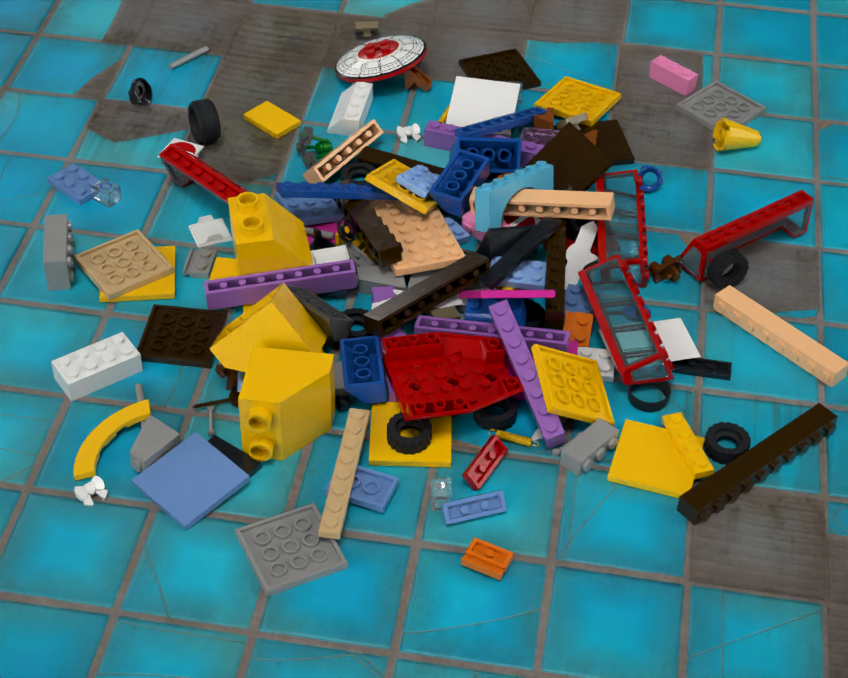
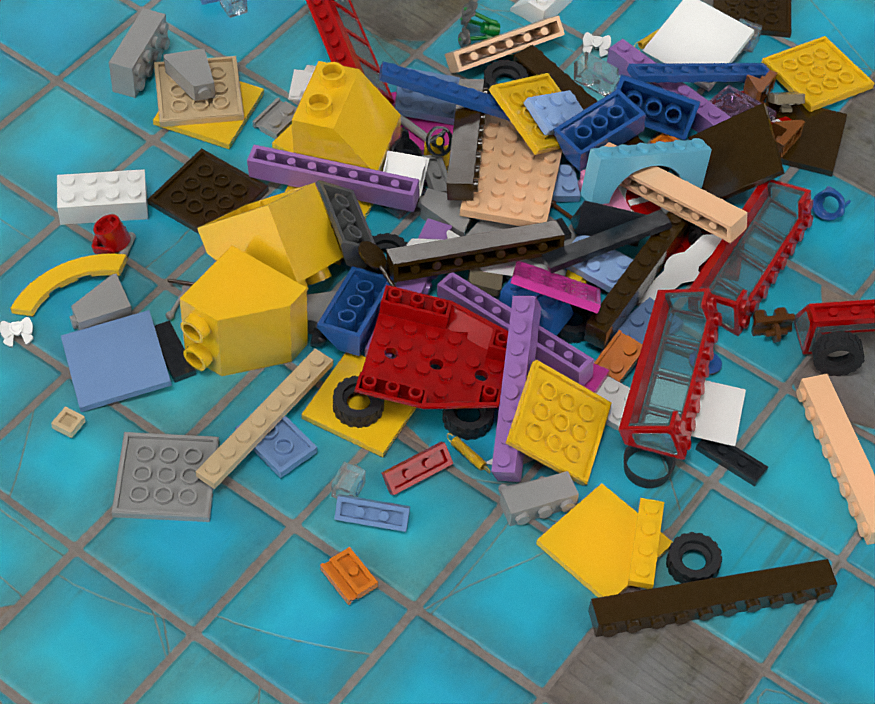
camera: 25 degrees right, 10 degrees up
(114, 250) = (191, 73): none -> light grey slope
(124, 389) = (111, 234): none -> red piece
(183, 540) = (68, 422): none -> tan plate
(357, 325) = (374, 257): none -> dark brown piece
(426, 150) = (596, 74): none -> clear brick

